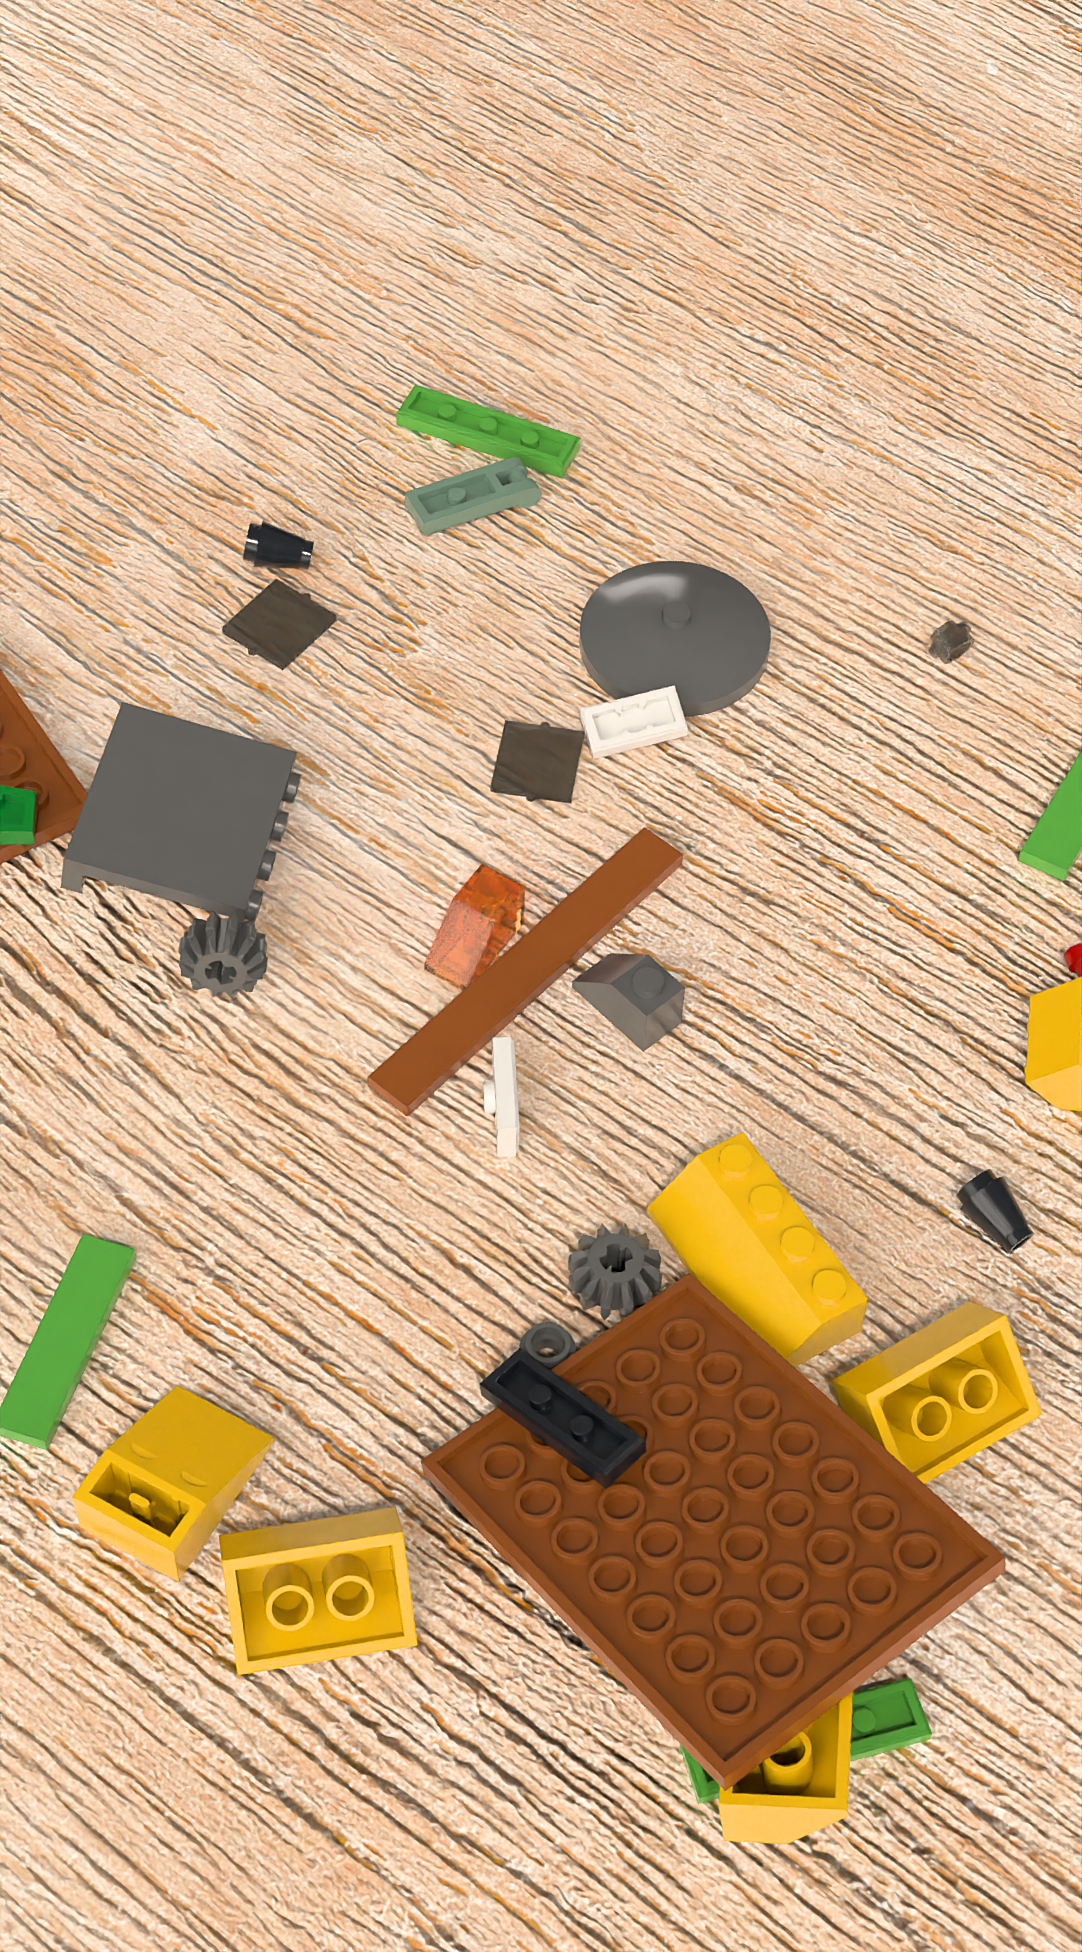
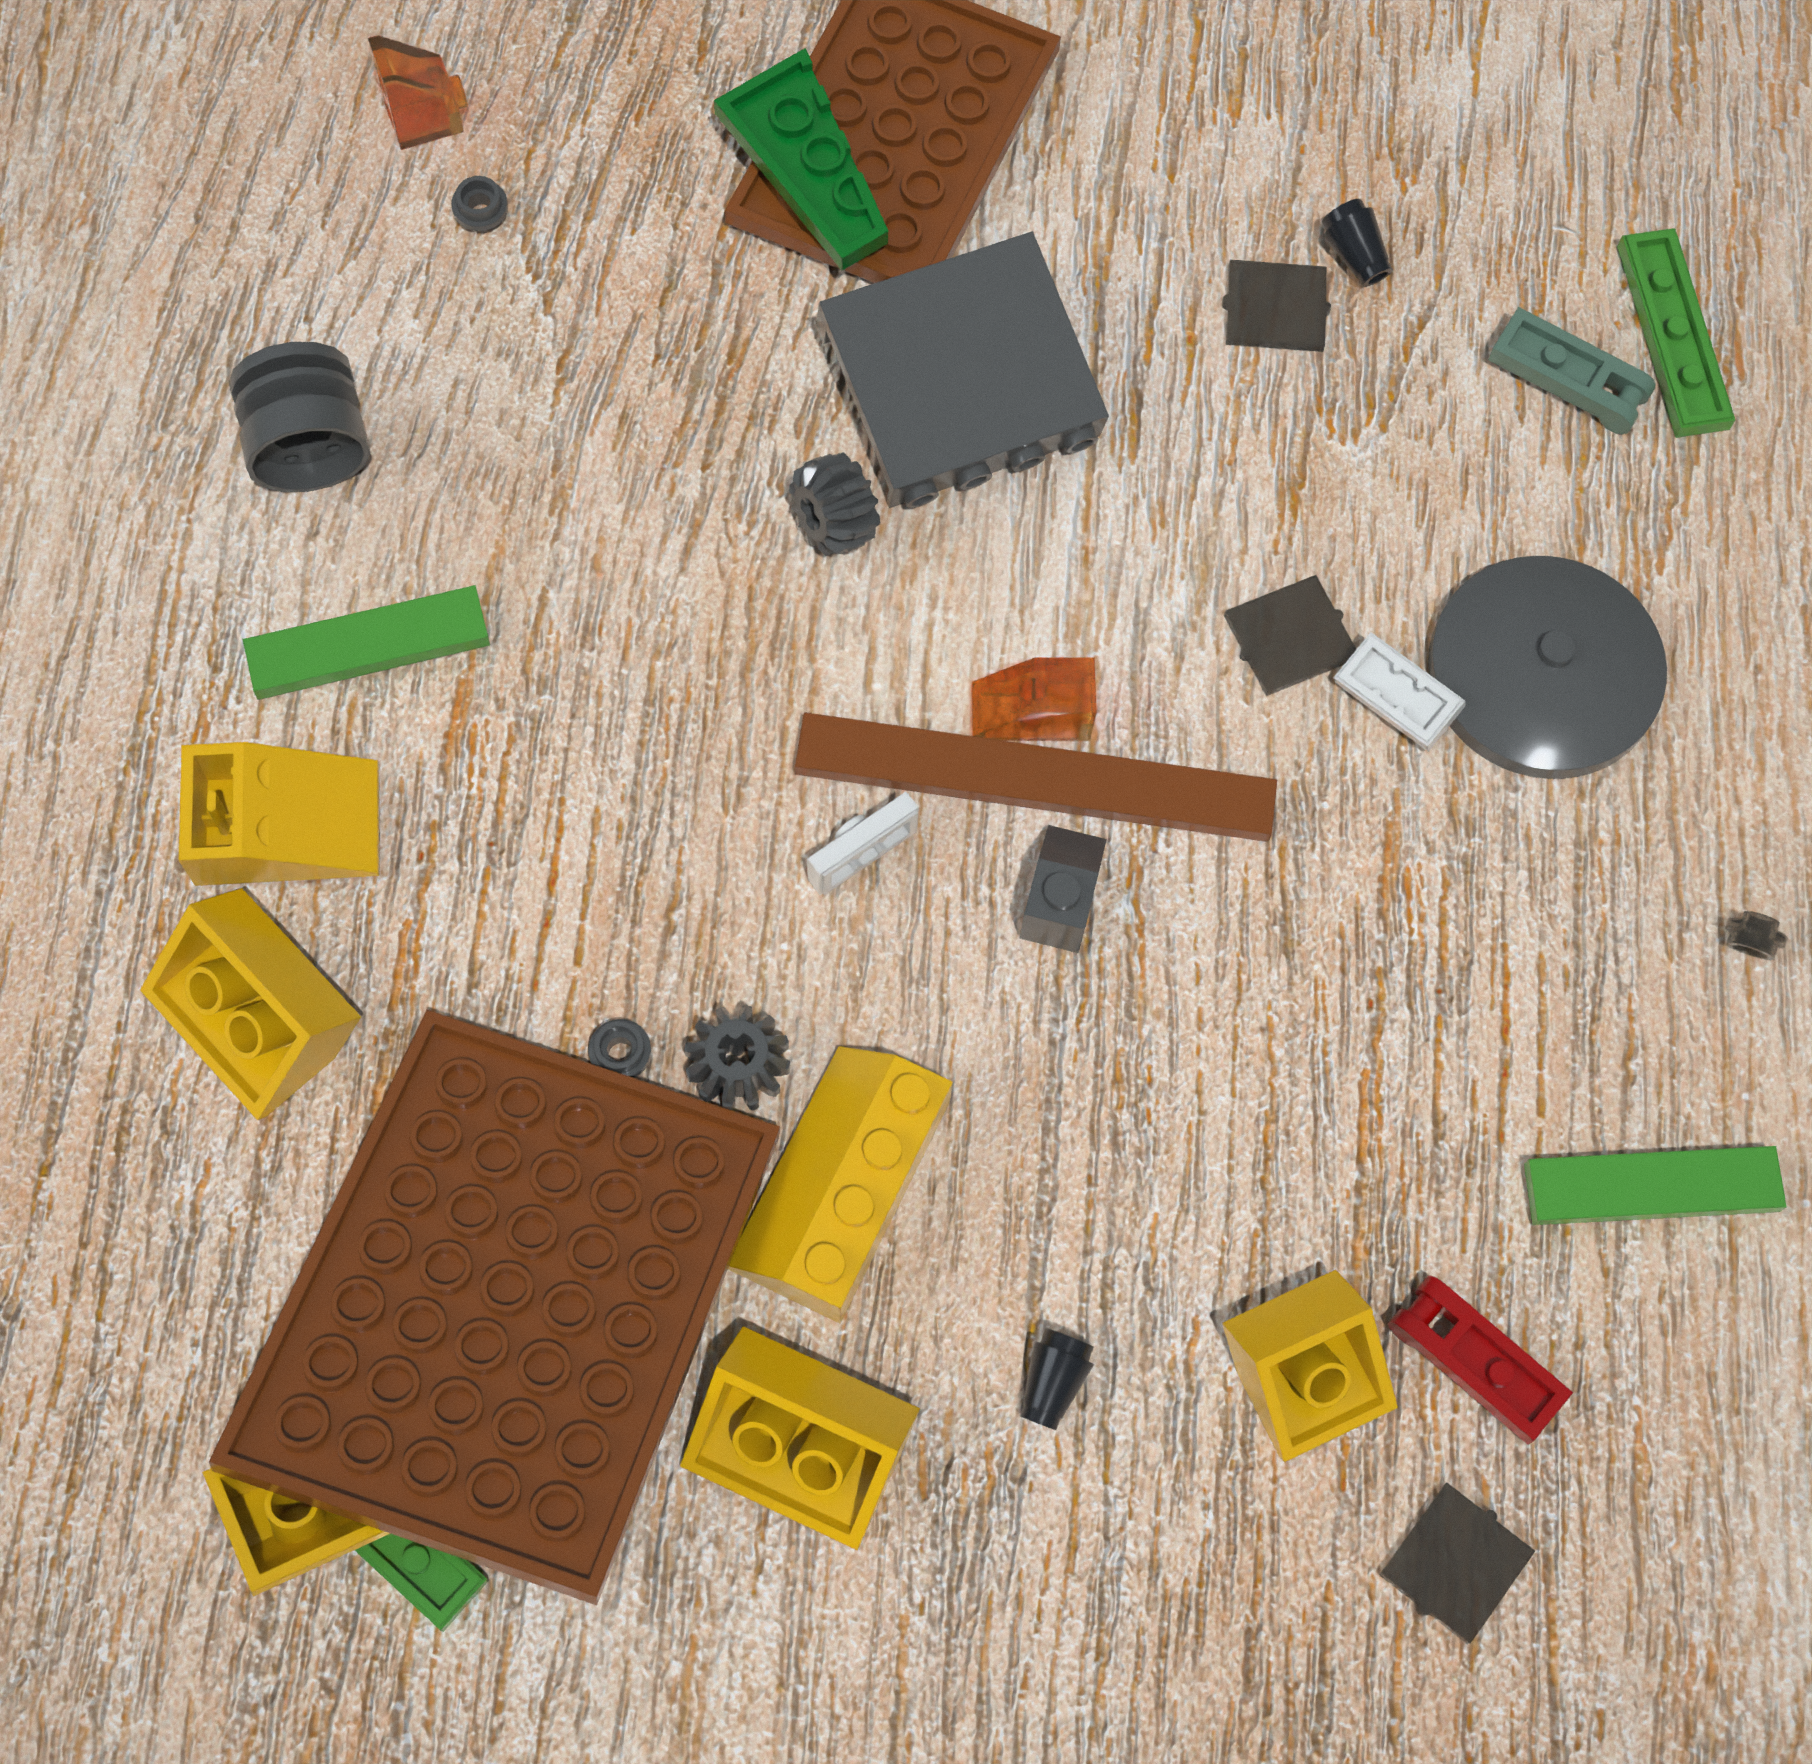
camera: 55 degrees right, 15 degrees up
(563, 1418) = (535, 1105): black tile -> none

